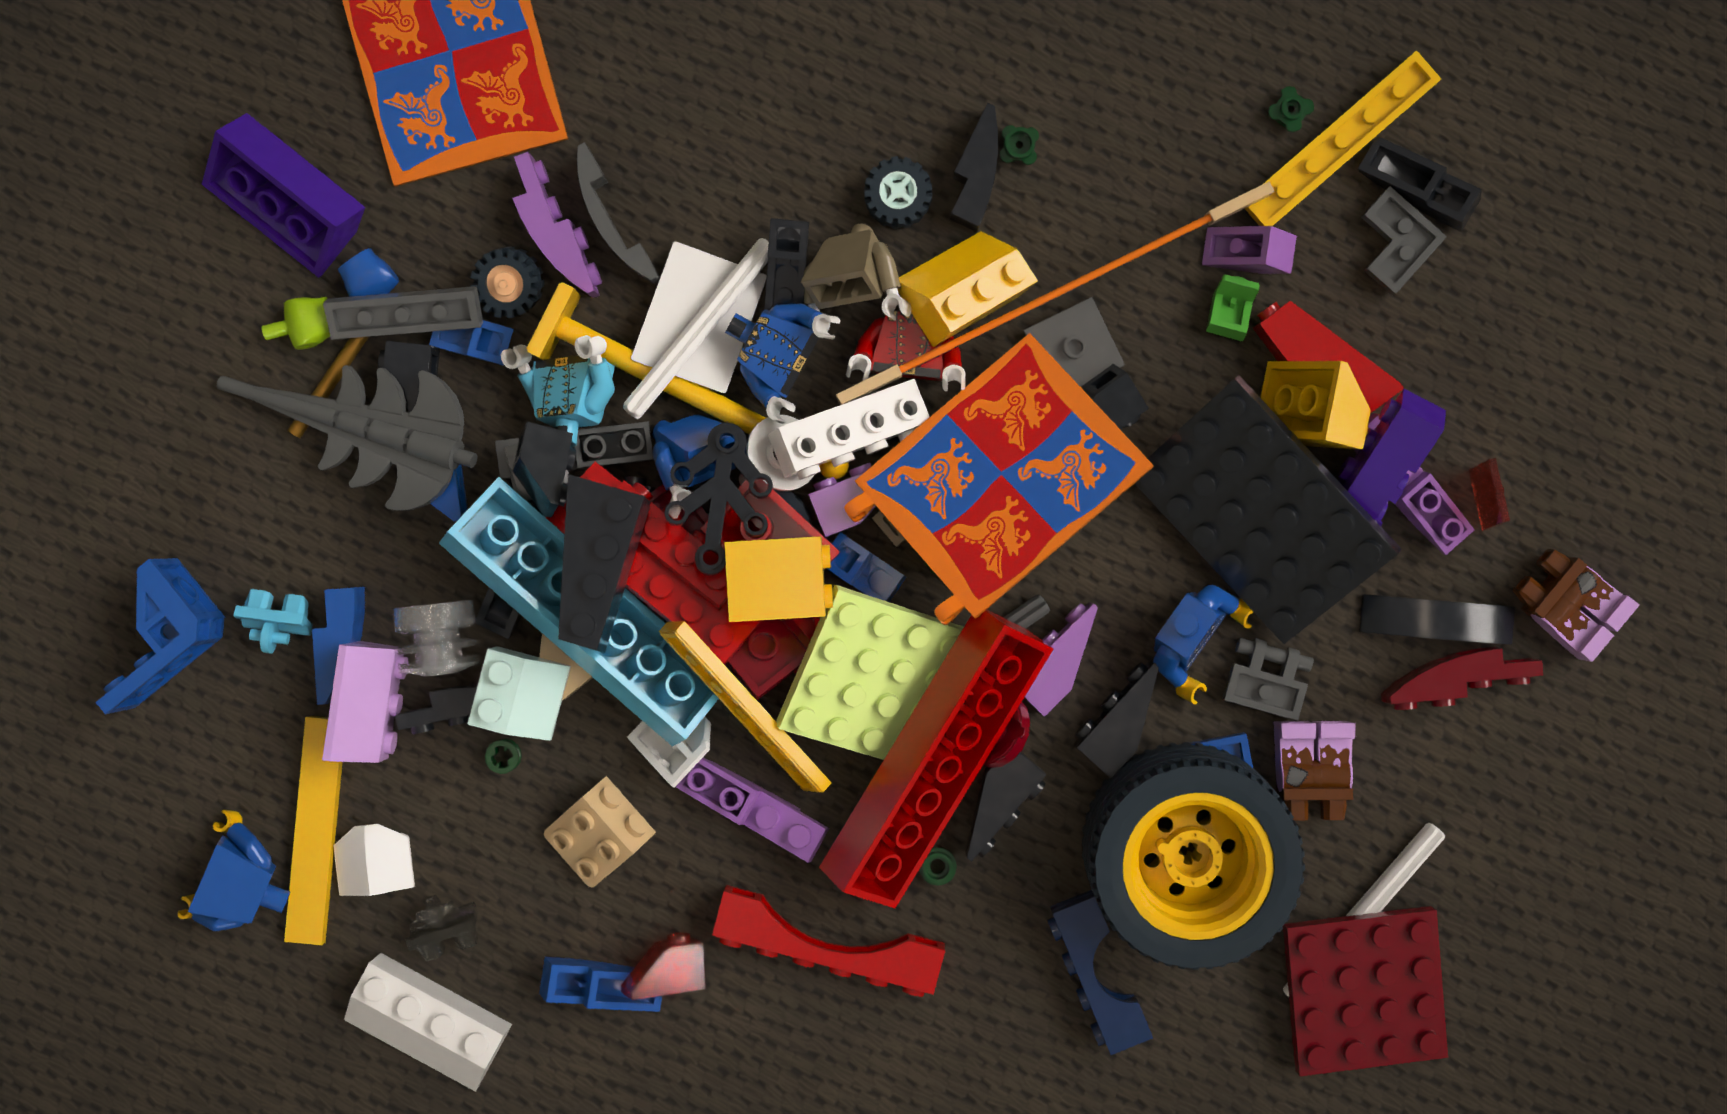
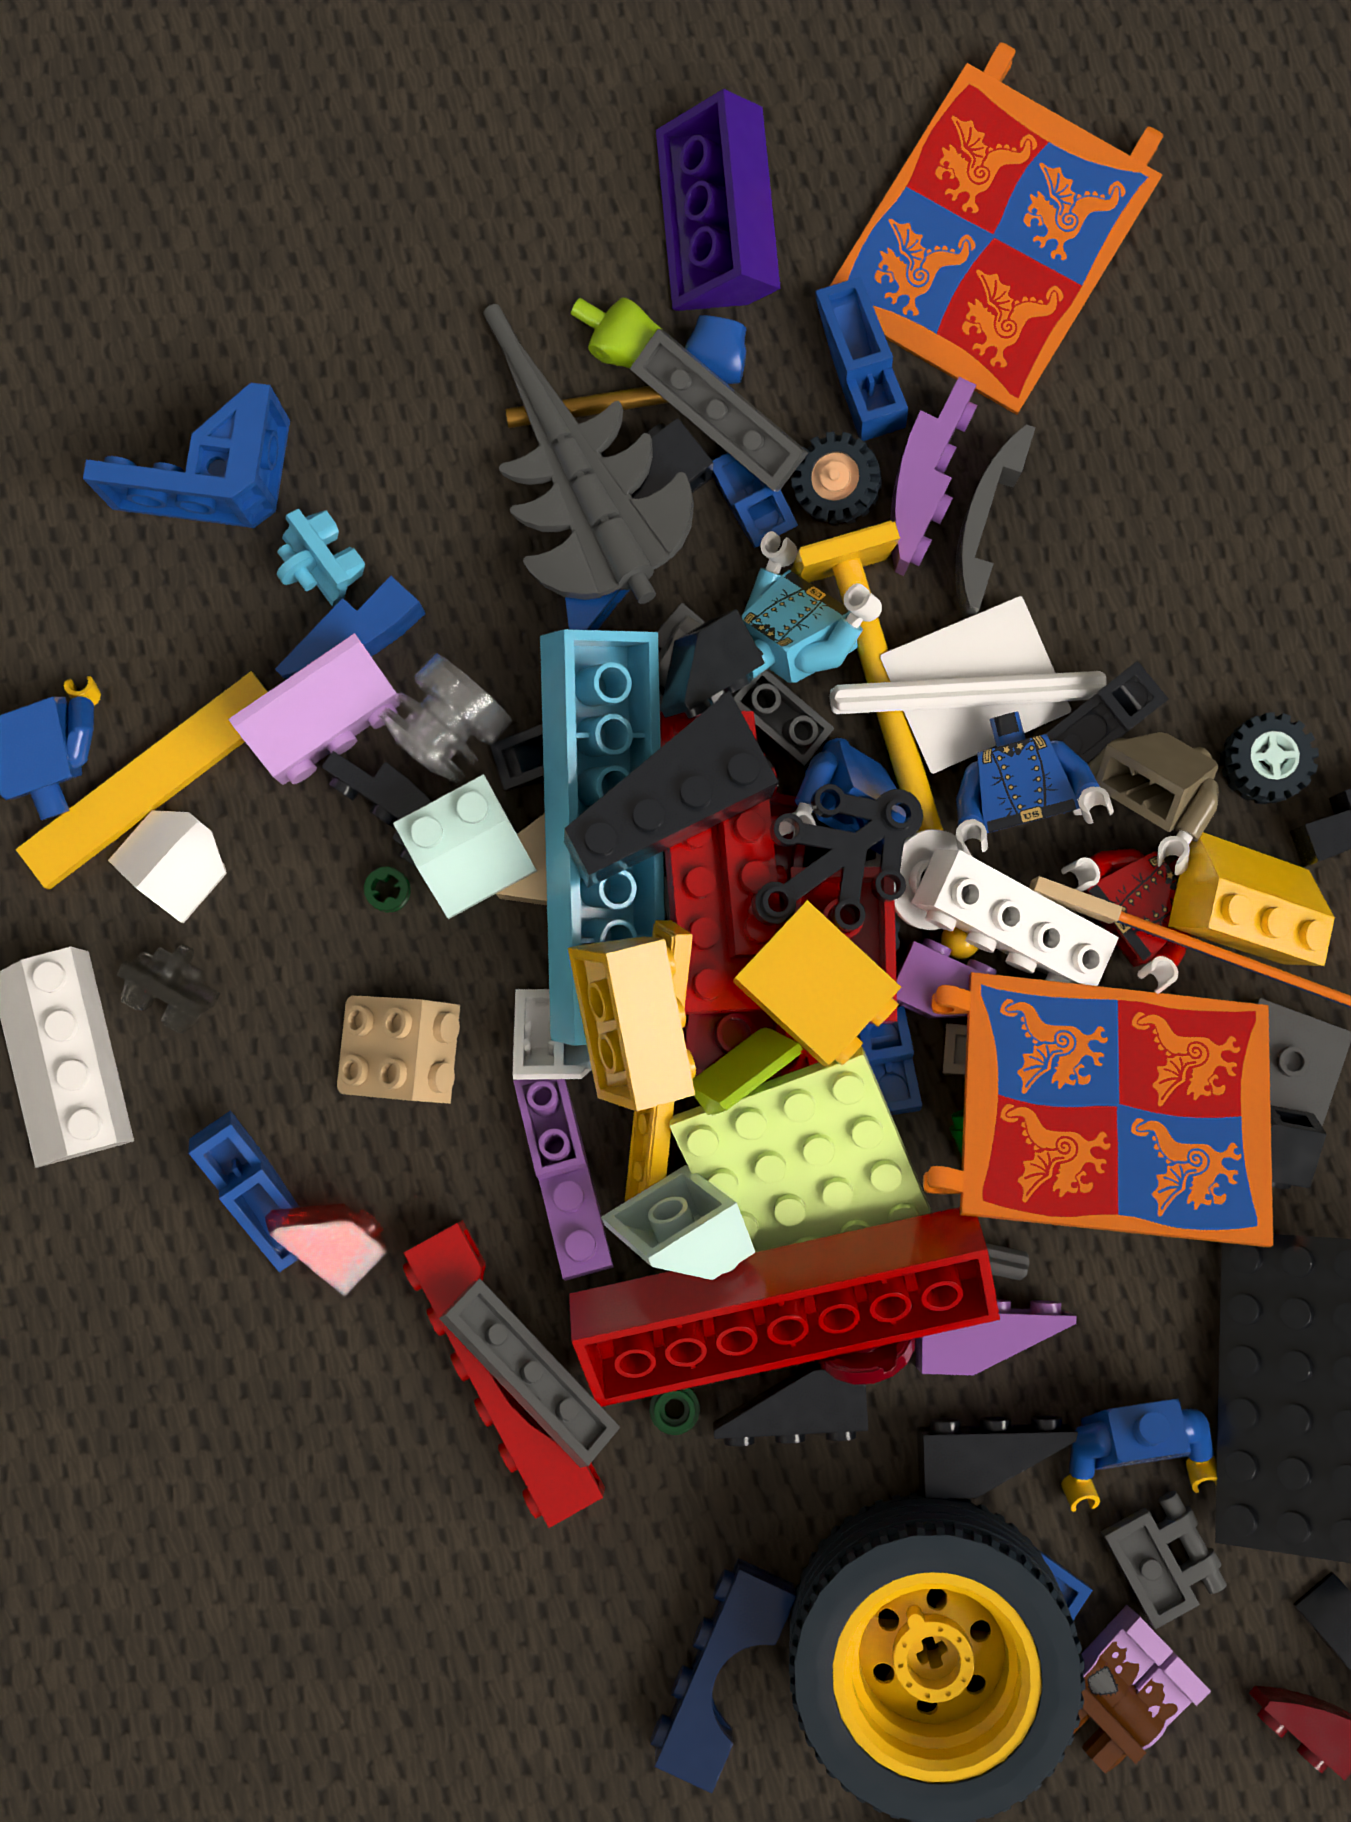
camera: 45 degrees right, 5 degrees down
(450, 199) = (862, 359): none -> blue slope
(701, 697) = (633, 1021): none -> yellow slope
(785, 661) = (743, 1069): none -> lime slope
(840, 774) = (683, 1226): none -> light aqua slope
(840, 928) = (530, 1373): none -> dark grey plate

